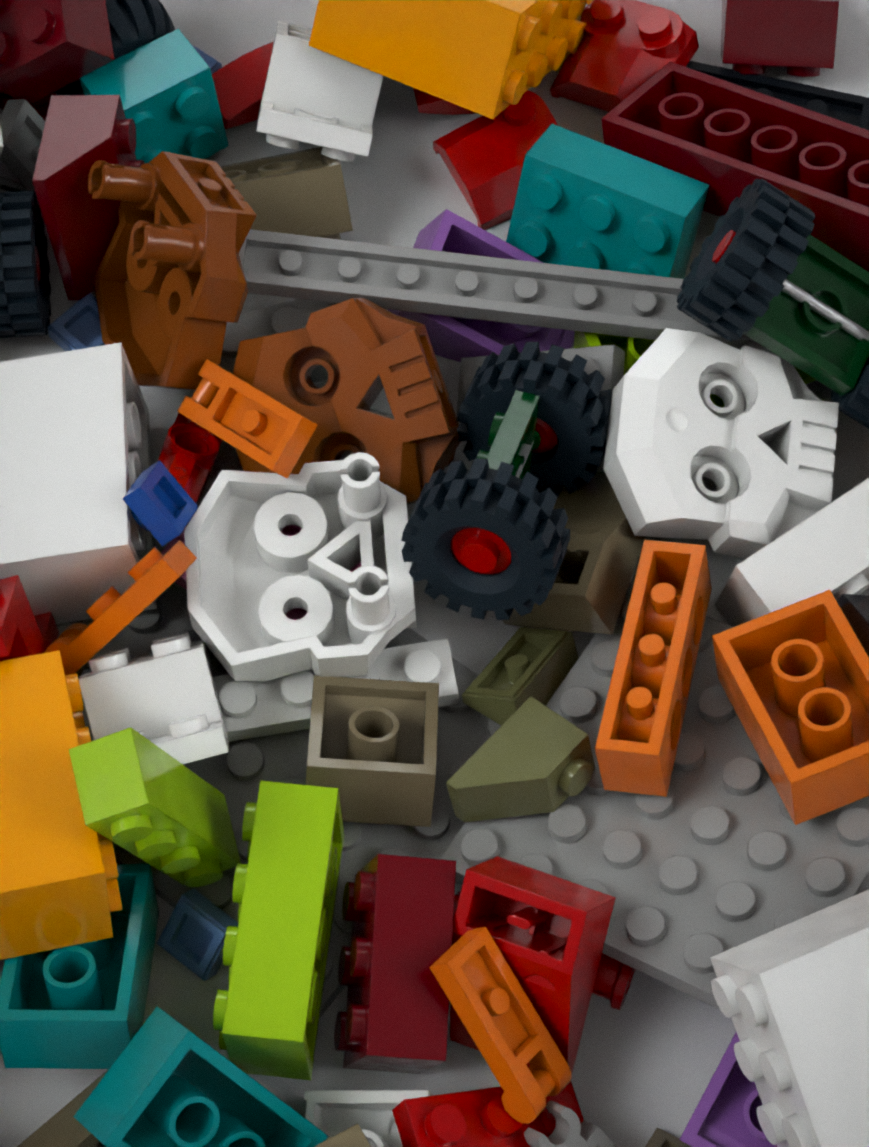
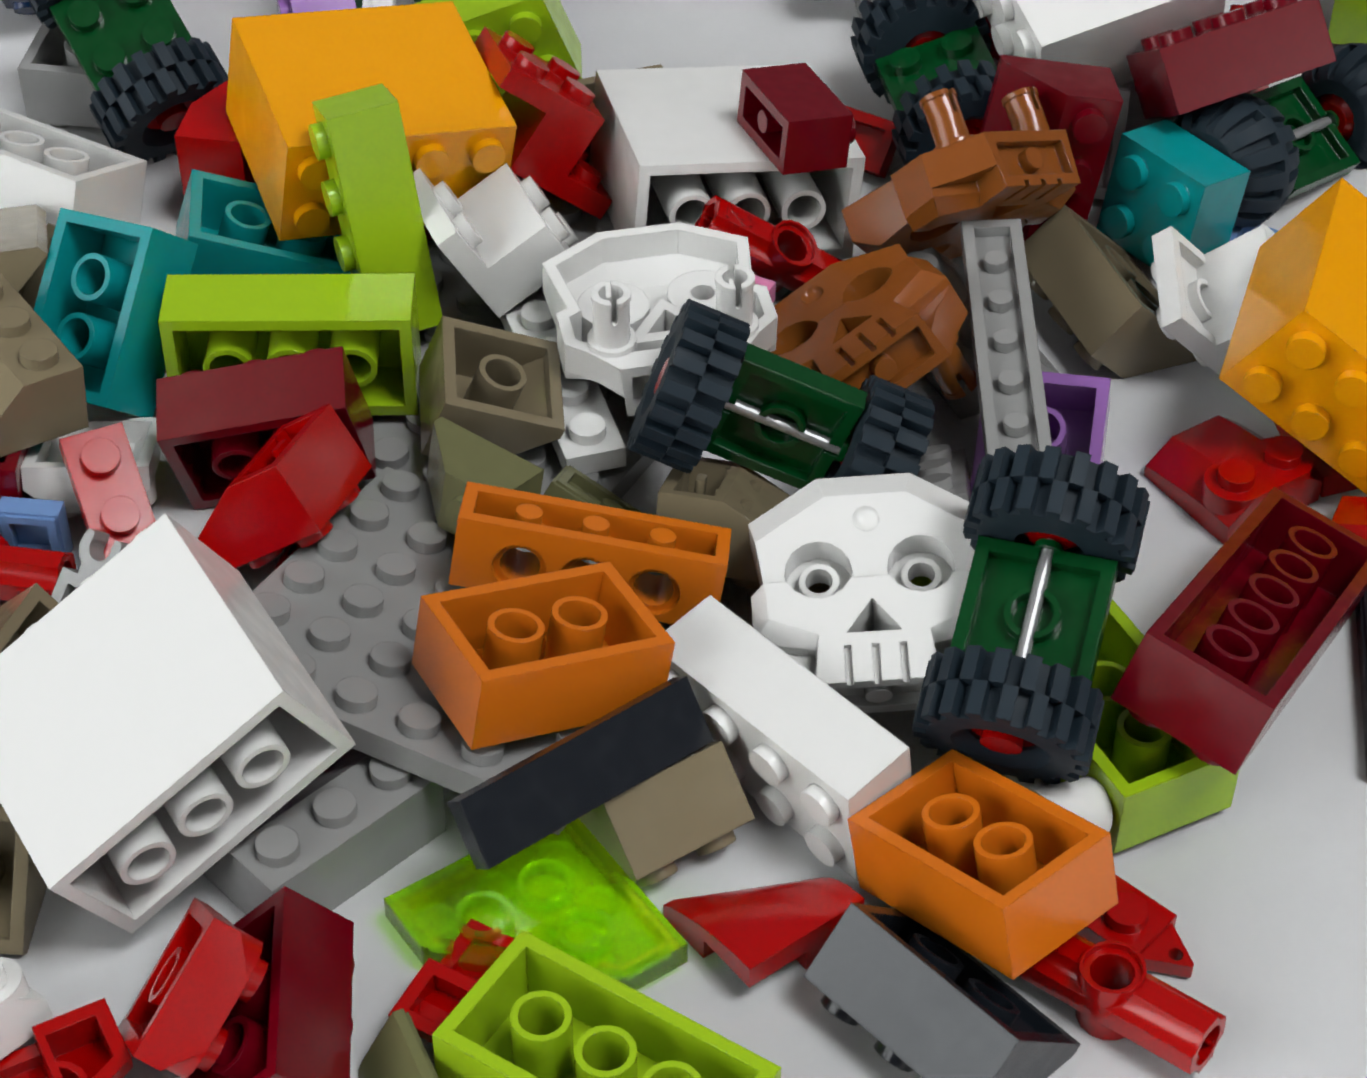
camera: 80 degrees right, 20 degrees down
(81, 387) = (795, 118): none -> dark red brick
(116, 610) = (599, 200): orange plate -> none
(160, 503) = (693, 189): blue plate -> none
(248, 419) = (807, 245): orange plate -> none
(502, 1023) = (197, 464): orange plate -> none
(604, 208) = (1187, 470): teal brick -> none

